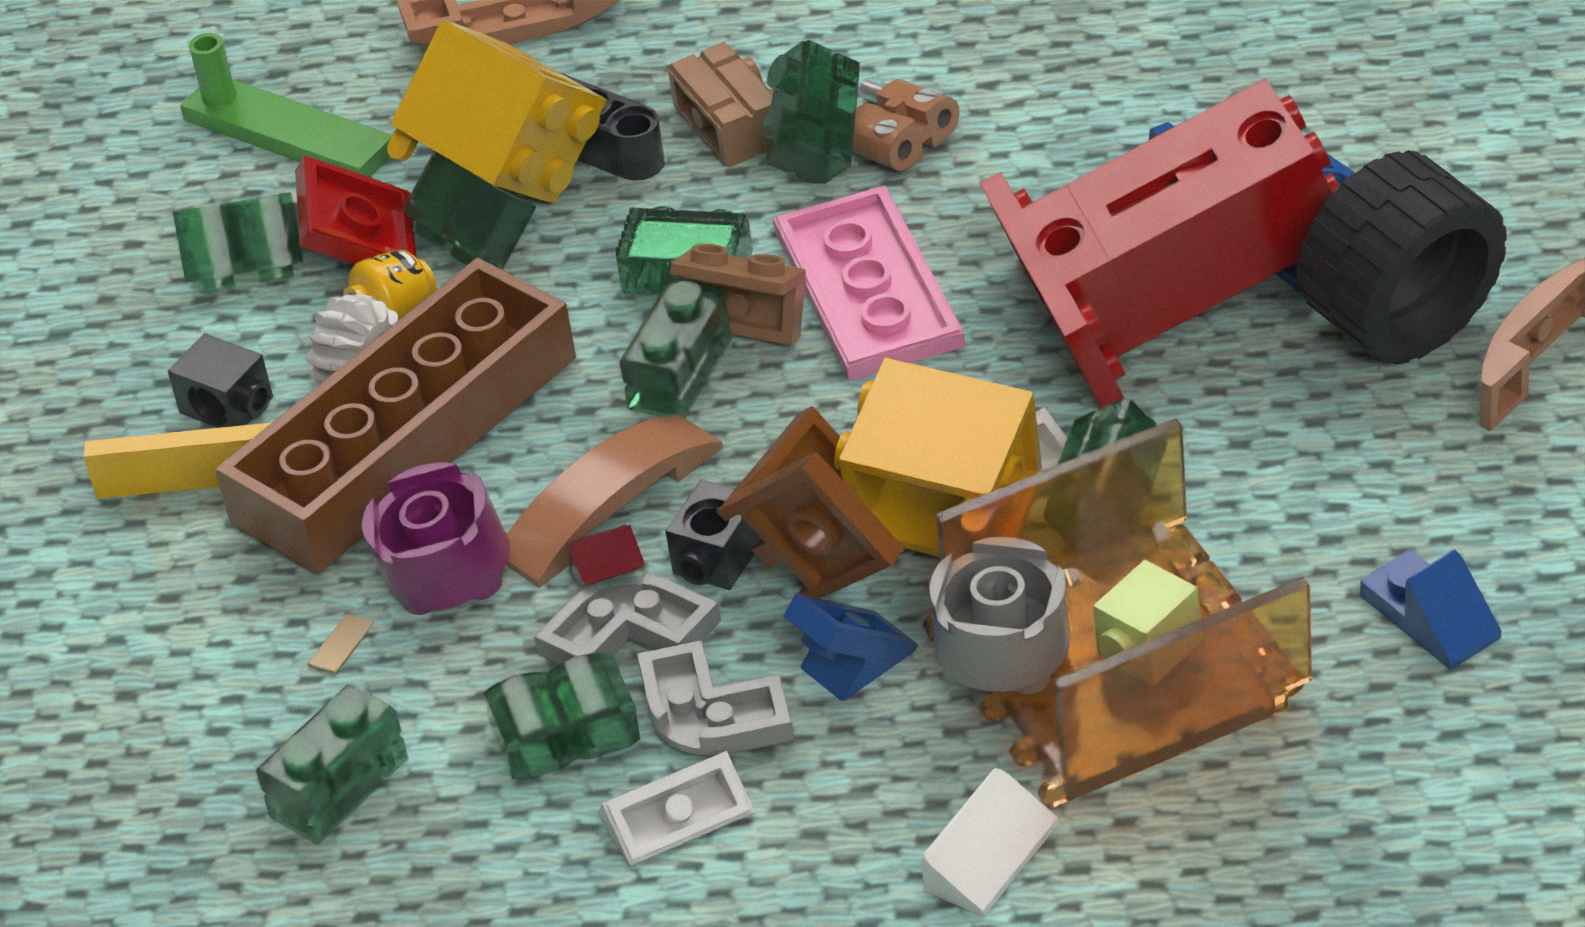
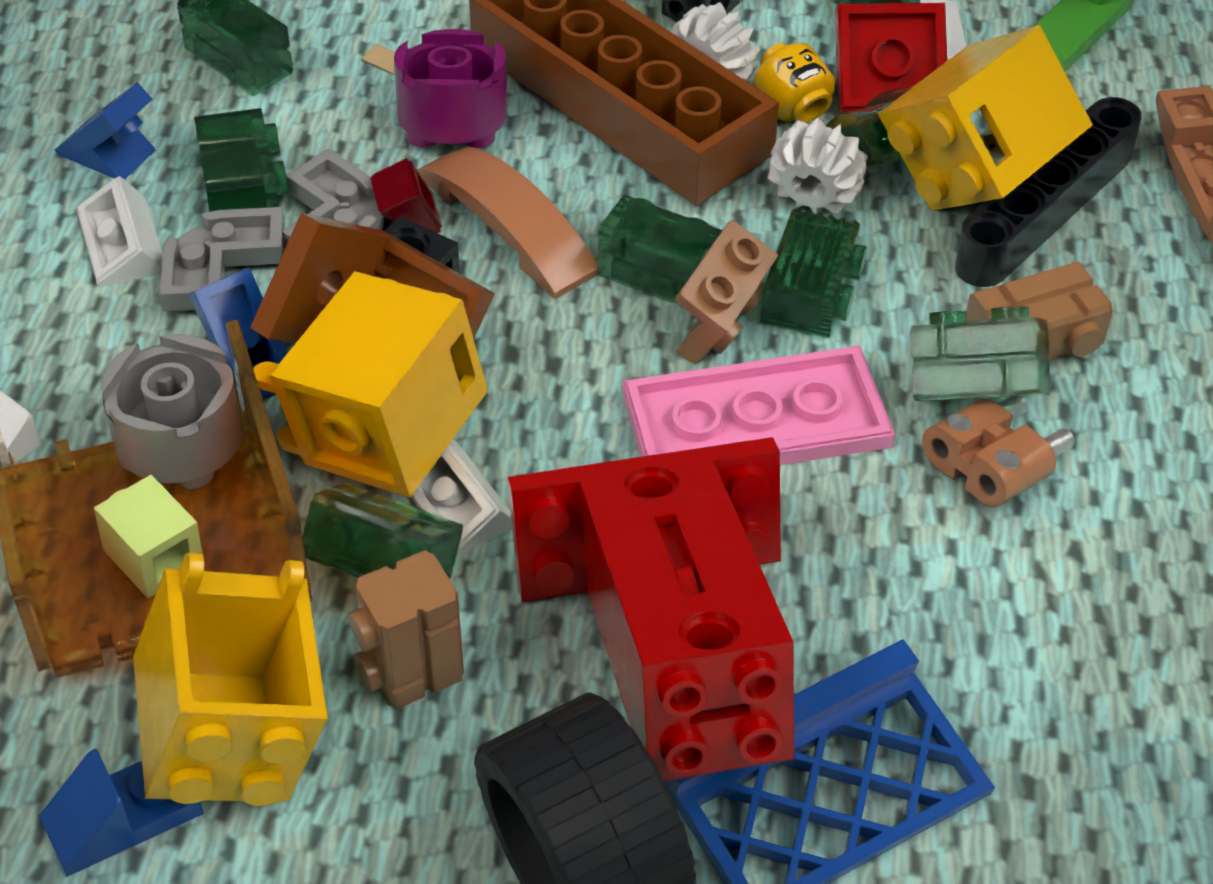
camera: 90 degrees right, 5 degrees up
(517, 838) = (111, 137): none -> blue slope
(543, 244) = (817, 166): none -> white gear
(1220, 415) = (407, 630): none -> medium nougat brick
(1324, 499) = (228, 685): none -> yellow container

